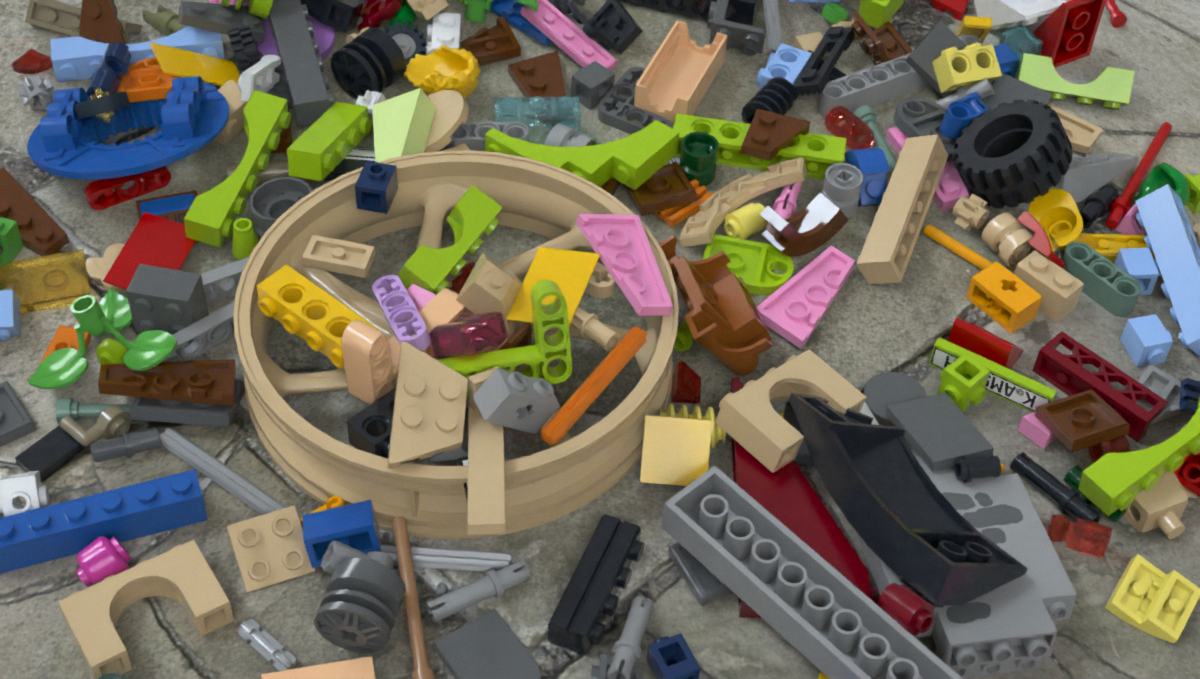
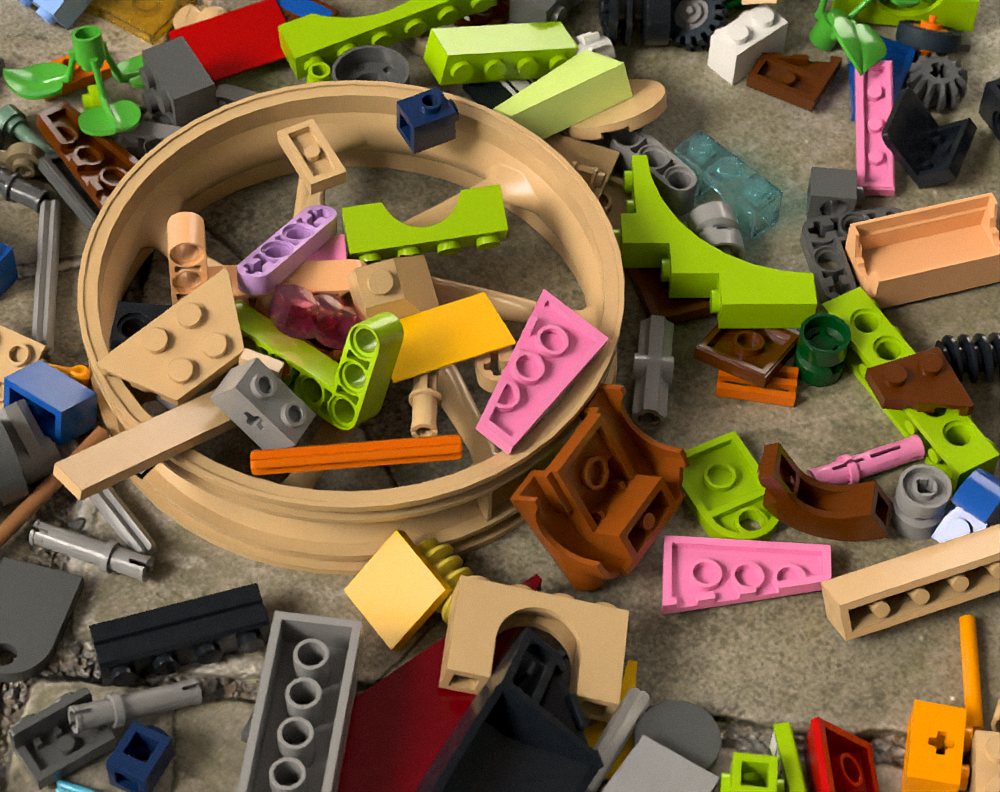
camera: 50 degrees right, 5 degrees up
(307, 312) = (219, 188): yellow brick -> none
(444, 70) = (695, 71): yellow piece -> none
(539, 76) = (794, 149): reddish brown wing -> none
(685, 385) = (506, 546): clear red slope -> none
(713, 211) = (810, 415): tan tile -> none
(745, 221) = (794, 443): light yellow brick -> none

